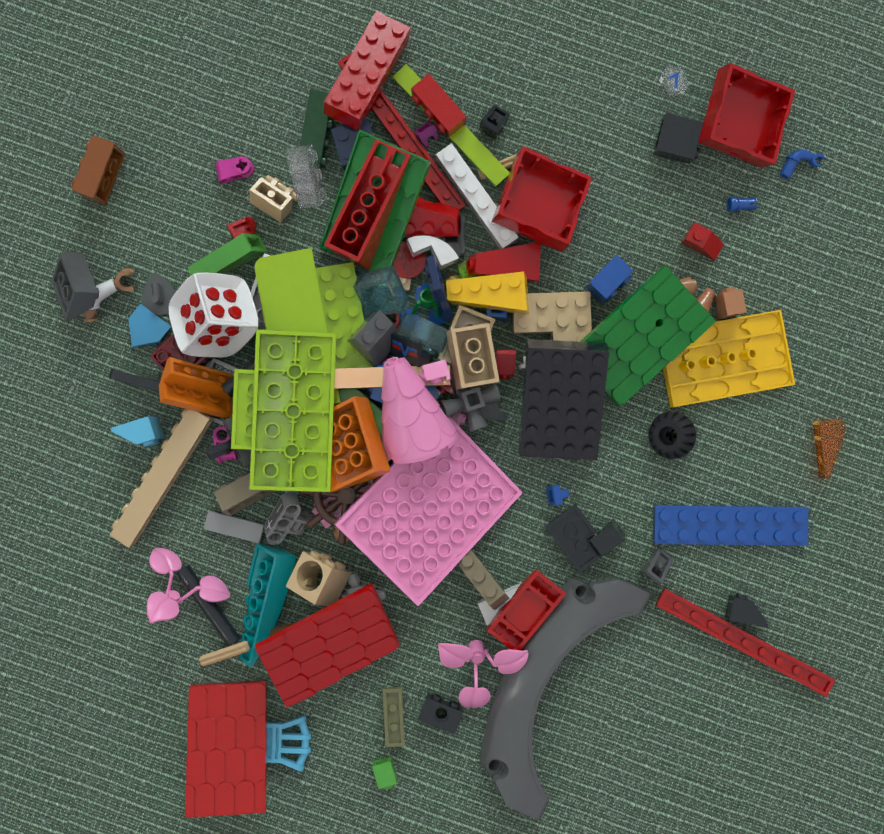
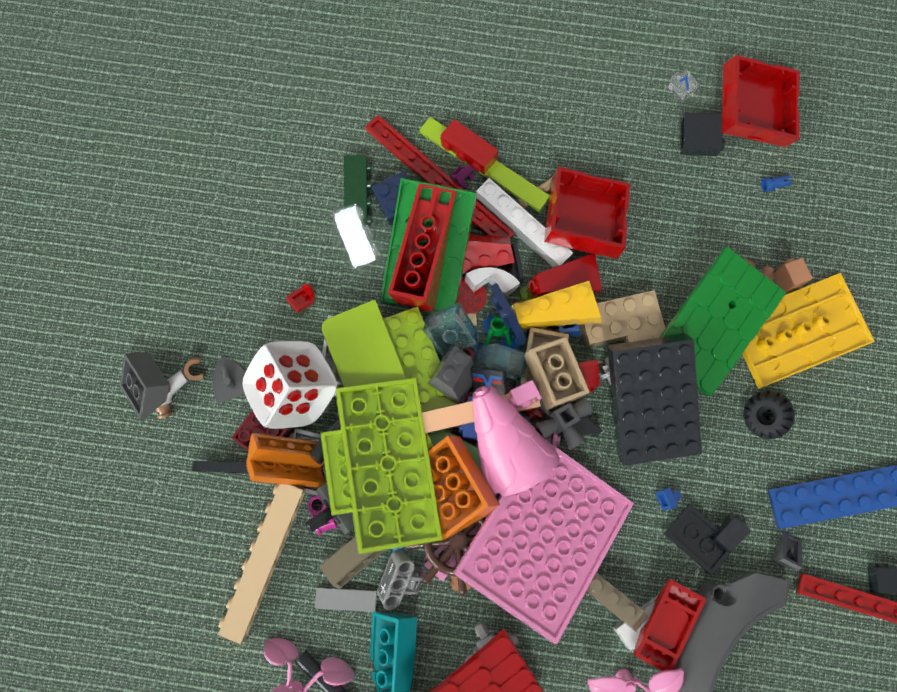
camera: 15 degrees left, 10 degrees down
(98, 170) = (151, 268): dark orange brick -> none
(141, 431) = (235, 517): medium azure slope -> none
(146, 327) = (222, 412): dark azure slope -> none
(230, 169) = (281, 243): dark pink piece -> none
(231, 255) = (296, 323): bright green slope -> none
(272, 197) = (326, 262): tan brick -> none
(304, 578) = (430, 641): tan brick -> none
(366, 70) = (394, 128): brick -> none
(494, 121) = (523, 153): black slope -> none
(613, 275) = (670, 275): blue brick -> none
(703, 241) = (748, 223): red slope -> none
(795, 157) = (814, 132): blue piece -> none

